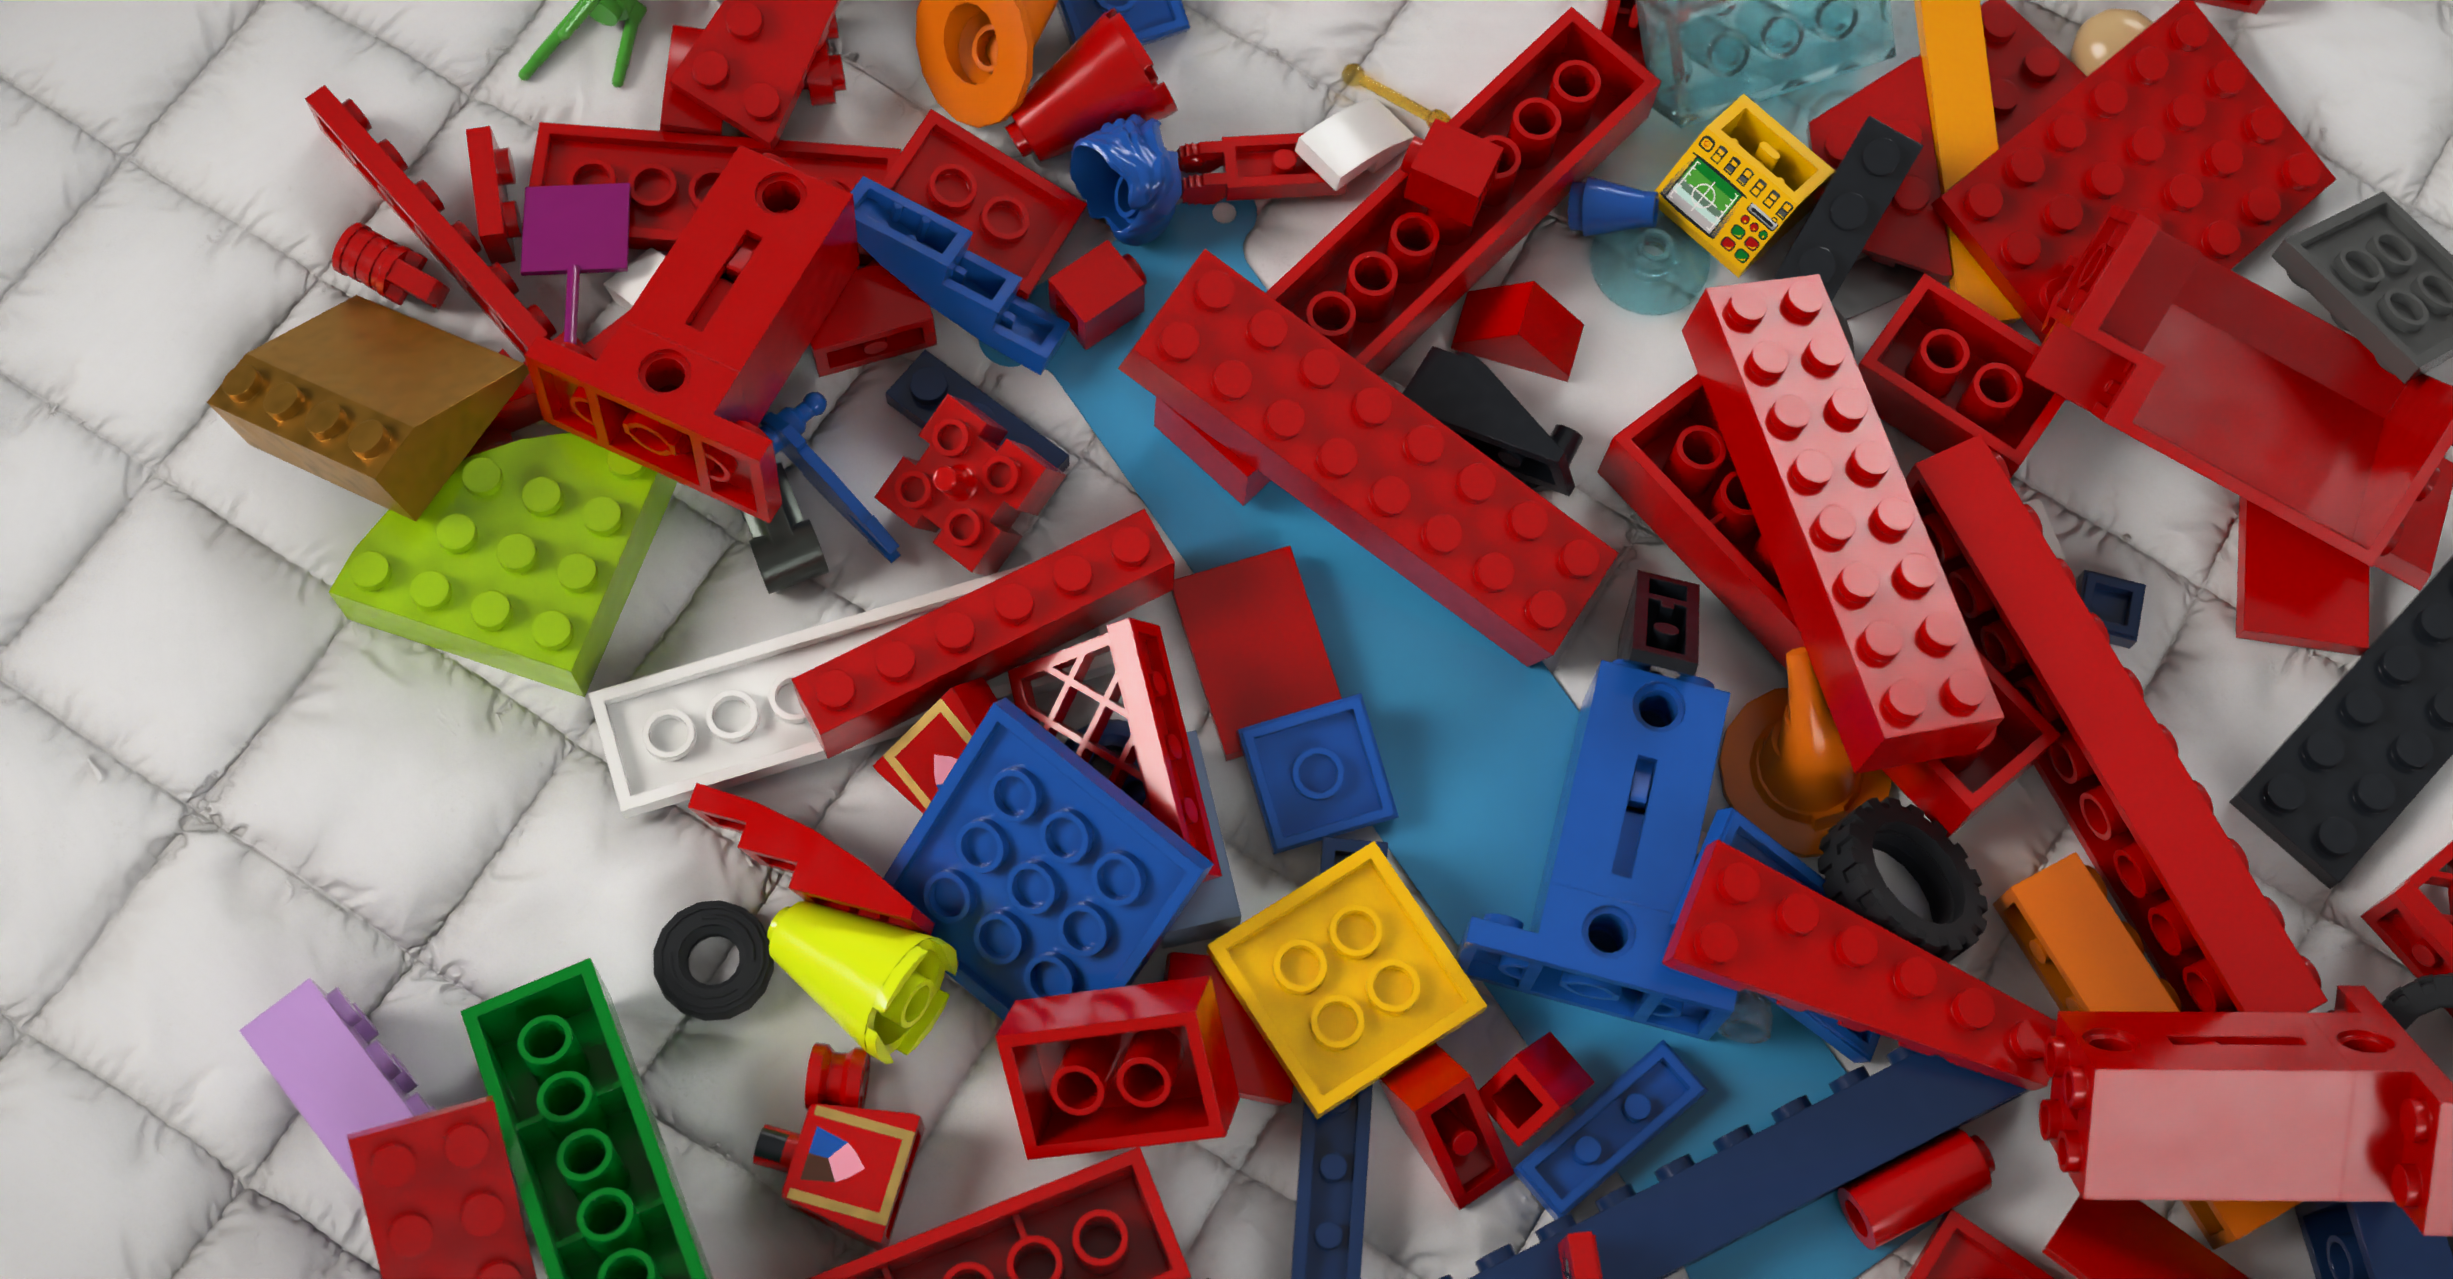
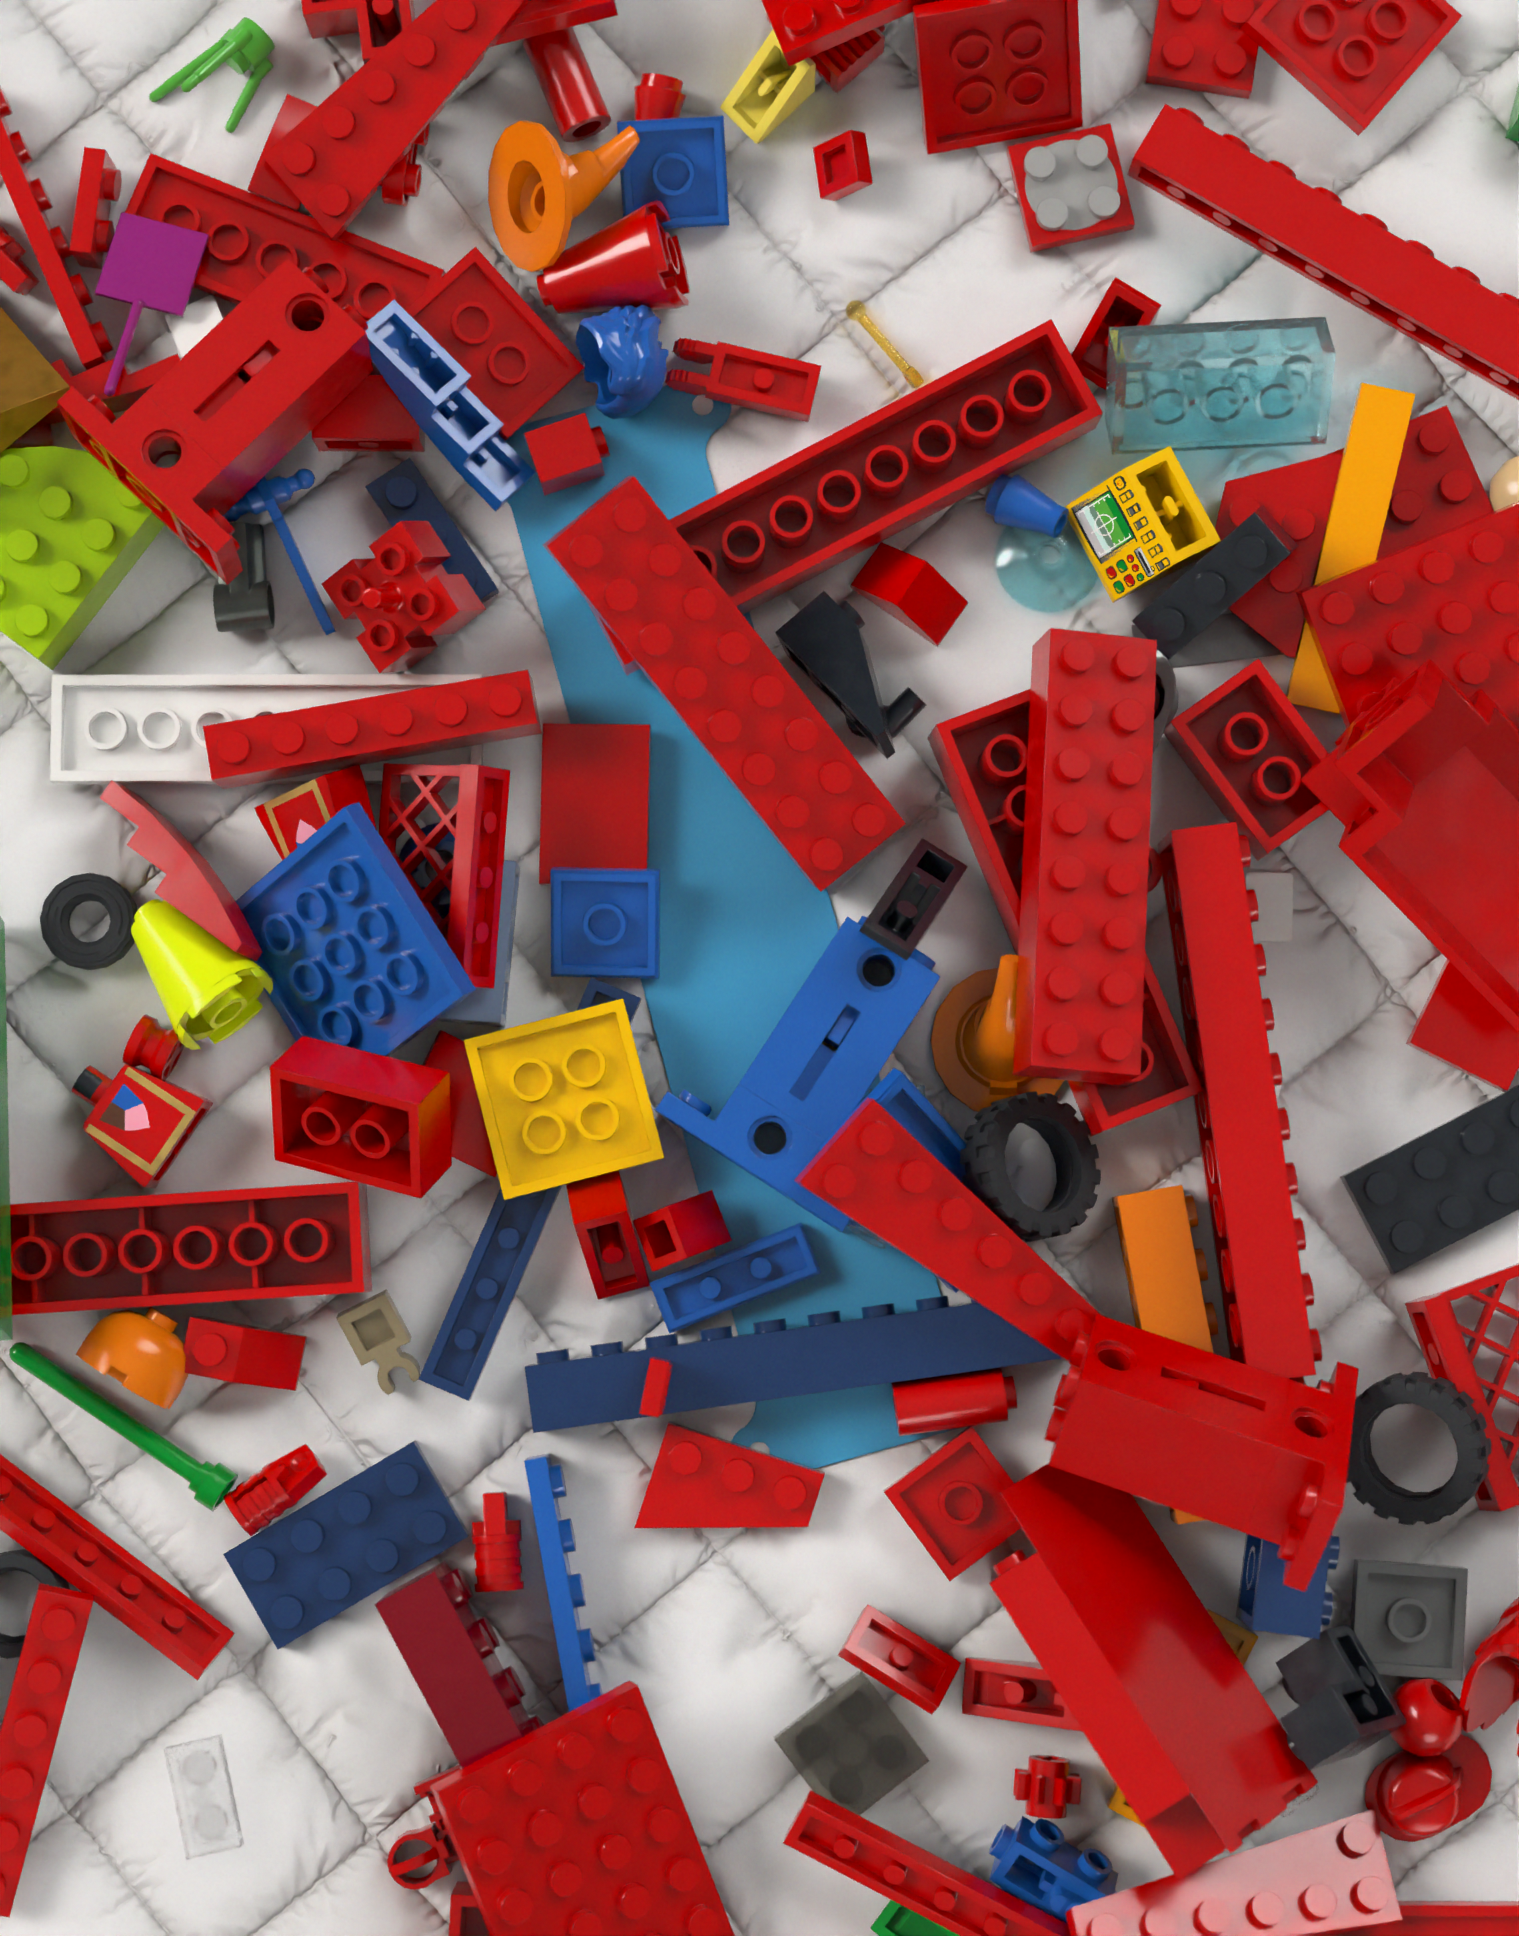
camera: 25 degrees right, 15 degrees up
(1353, 141) = (830, 379): white slope -> none
(1450, 171) = (883, 449): red brick -> none
(2115, 602) = (1307, 986): dark blue tile -> none

